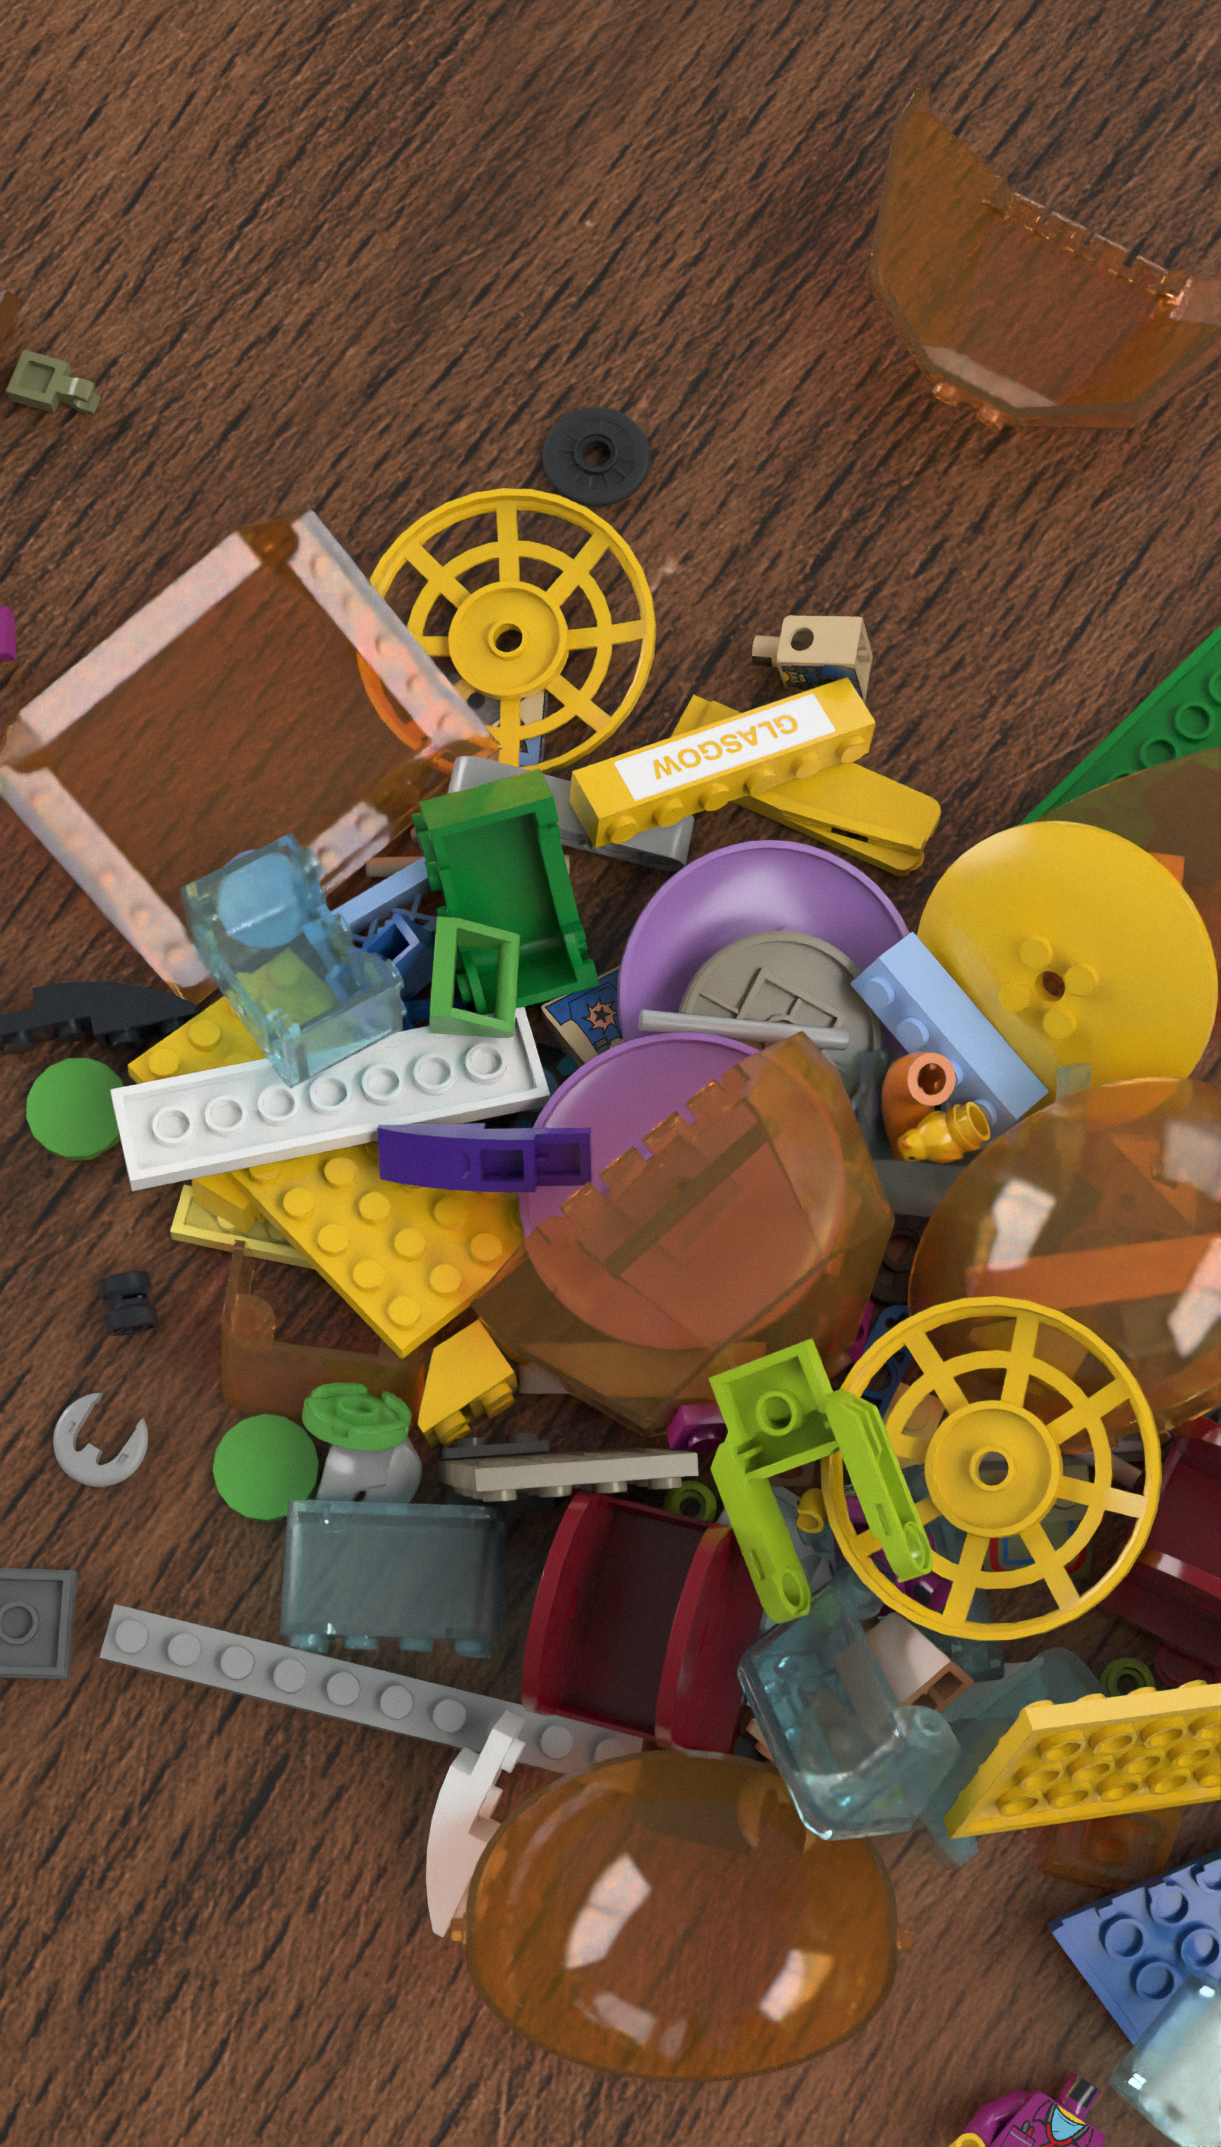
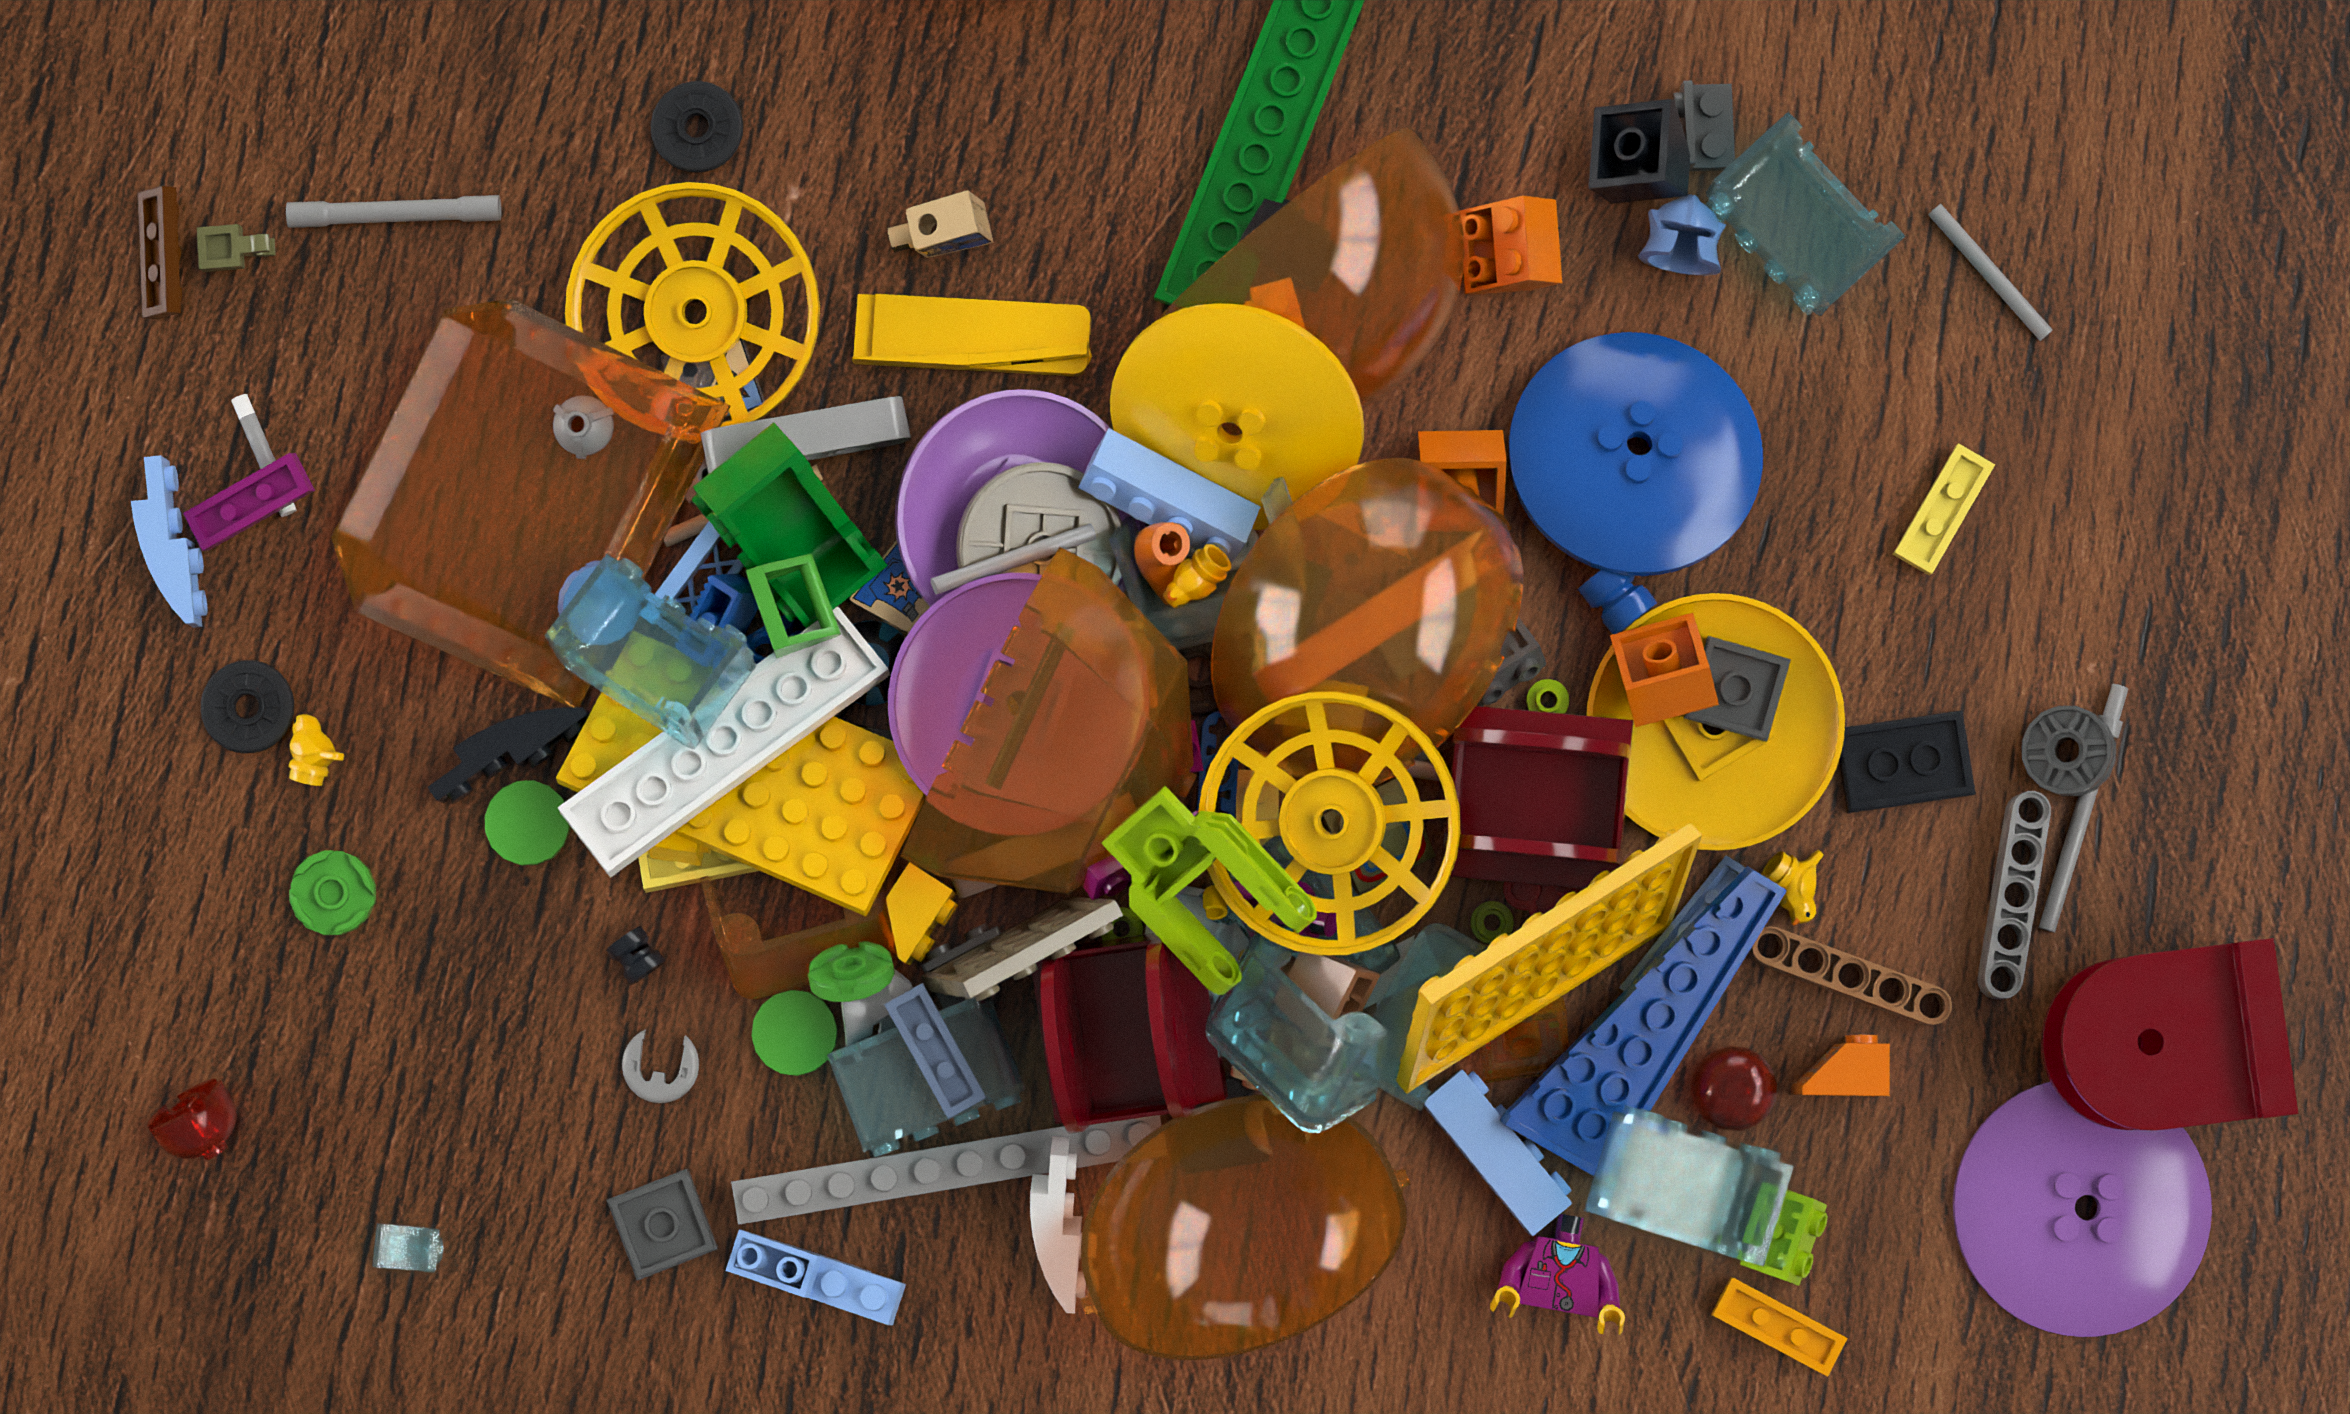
camera: 30 degrees left, 10 degrees up
(163, 1761) = (815, 1277): none -> light blue slope
(164, 391) = (324, 213): none -> light grey piece
(340, 715) = (597, 427): none -> light grey piece
(412, 1548) = (935, 1051): none -> sand blue plate
(483, 1158) = (864, 744): dark purple slope -> none
(721, 762) = (907, 350): yellow brick -> none
(1027, 1965) = (1497, 1152): none -> light blue brick

